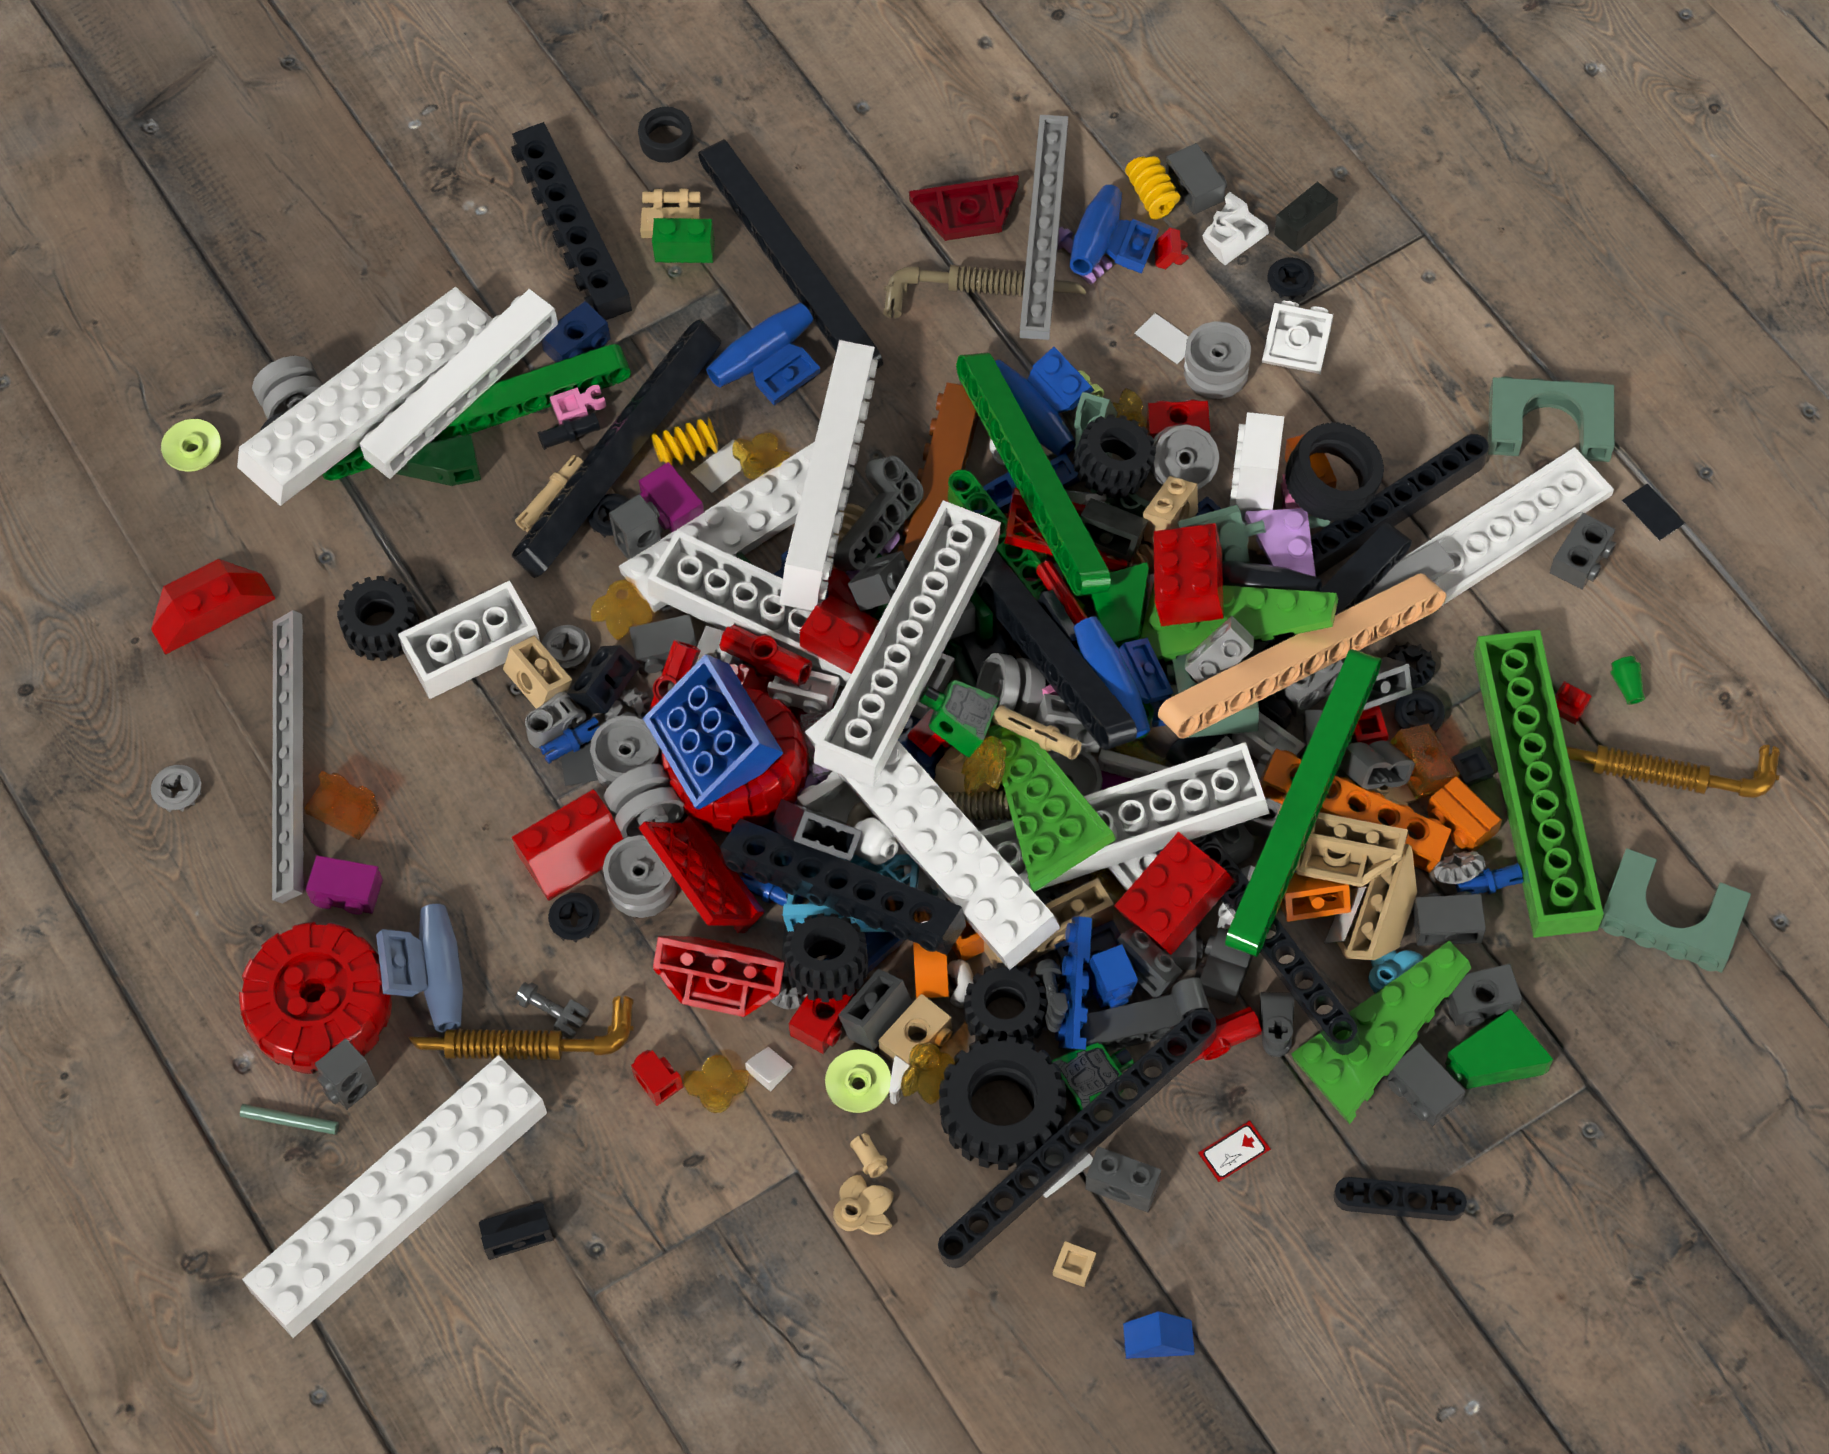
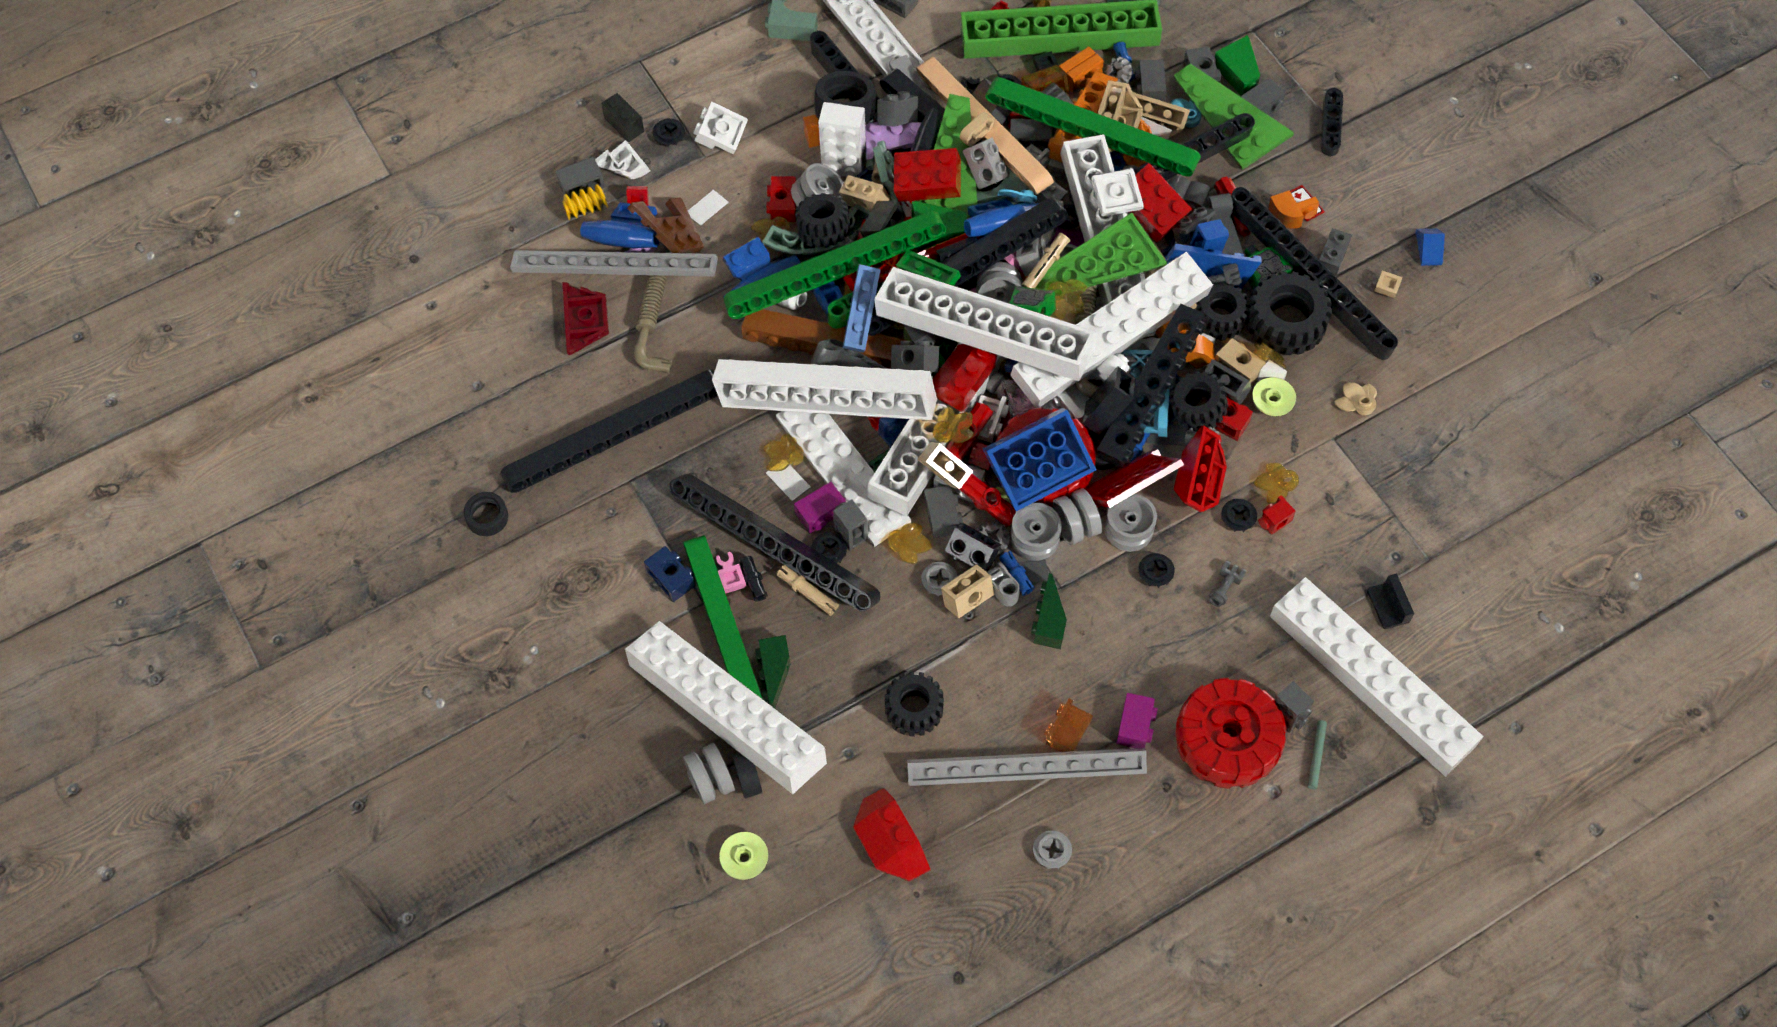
camera: 90 degrees left, 0 degrees up
(425, 965) = (1204, 657): sand blue plate -> none
(458, 383) = (713, 640): white brick -> none
(467, 639) = (936, 637): white brick -> none
(500, 781) = (1052, 618): none -> dark green slope
(530, 1044) = (1255, 595): pearl gold piece -> none
(568, 844) = (1101, 572): red slope -> none
(571, 221) = (548, 575): black brick -> none
(659, 197) = (567, 512): tan plate -> none
(662, 1015) = (1239, 506): none -> black gear
(683, 240) = (590, 499): green brick -> none
(685, 443) = (773, 497): yellow piece -> none
(698, 615) = (945, 465): none -> tan brick
(764, 626) = (954, 424): none -> clear yellow plate
(768, 1068) = (1264, 451): white slope -> none
(769, 353) = (701, 443): blue plate -> none
(873, 1162) = (1323, 393): tan pin -> none
(922, 506) = (861, 308): none -> medium blue plate
(1012, 578) = (928, 268): none -> green plate
(1097, 292) = (675, 232): none -> reddish brown wing
(1162, 689) = (1022, 197): none -> medium azure plate
(1163, 823) = (1117, 192): none -> white tile
(1203, 1116) = (1291, 213): none -> orange brick
(1217, 360) = (736, 171): light grey wheel -> none
(1270, 631) = (977, 129): none -> tan beam
(1277, 1019) = (1217, 168): dark grey piece -> none
(1321, 541) = (897, 109): none -> dark grey brick

